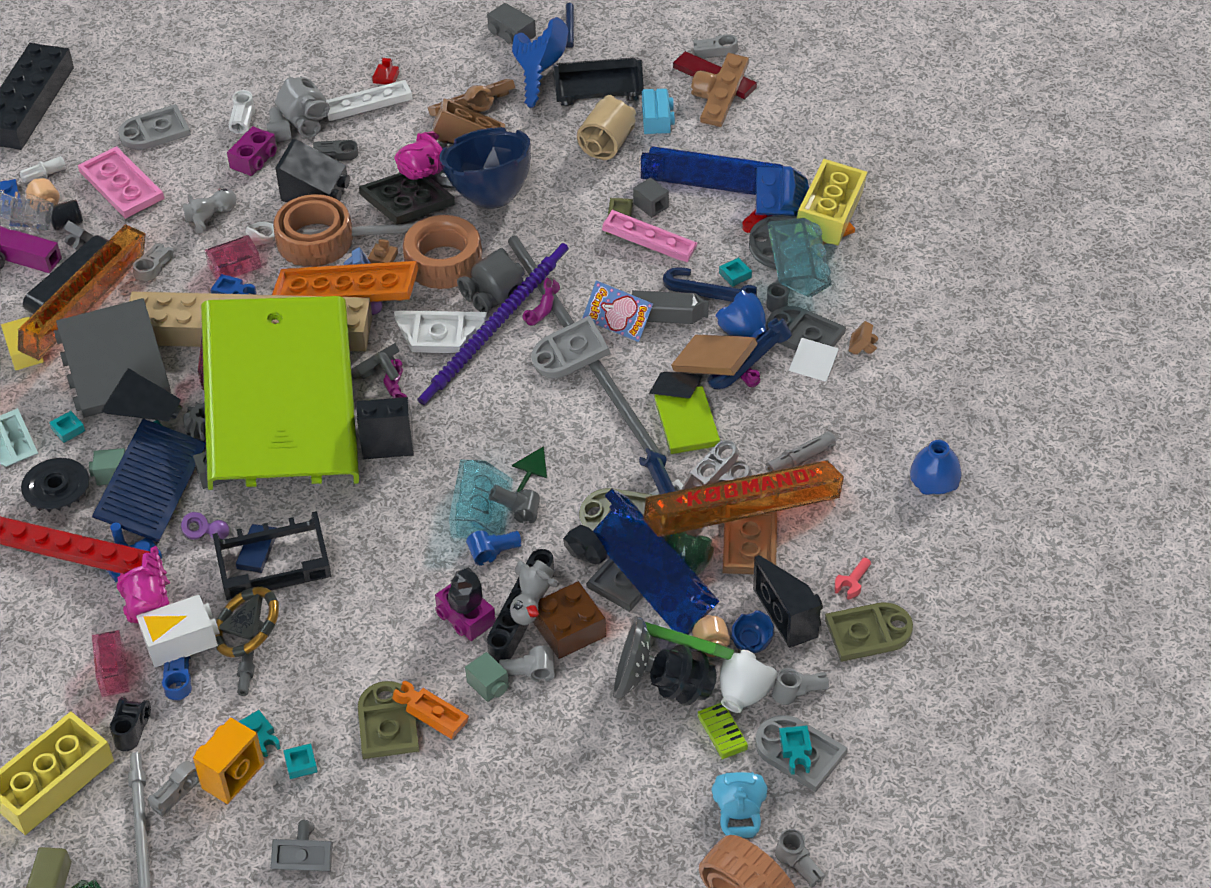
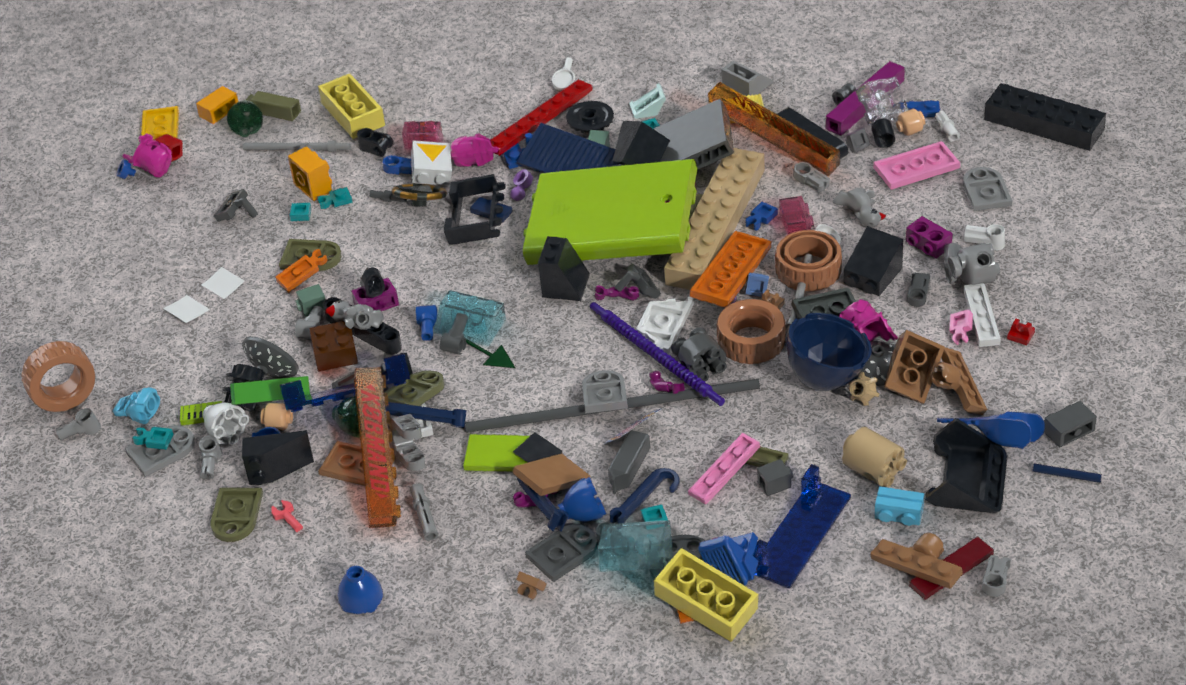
camera: 110 degrees right, 5 degrees down
(386, 110) = (960, 324): none -> bright pink plate
(527, 834) = (221, 283): none -> white sticker
(813, 359) = (524, 546): white sticker -> none

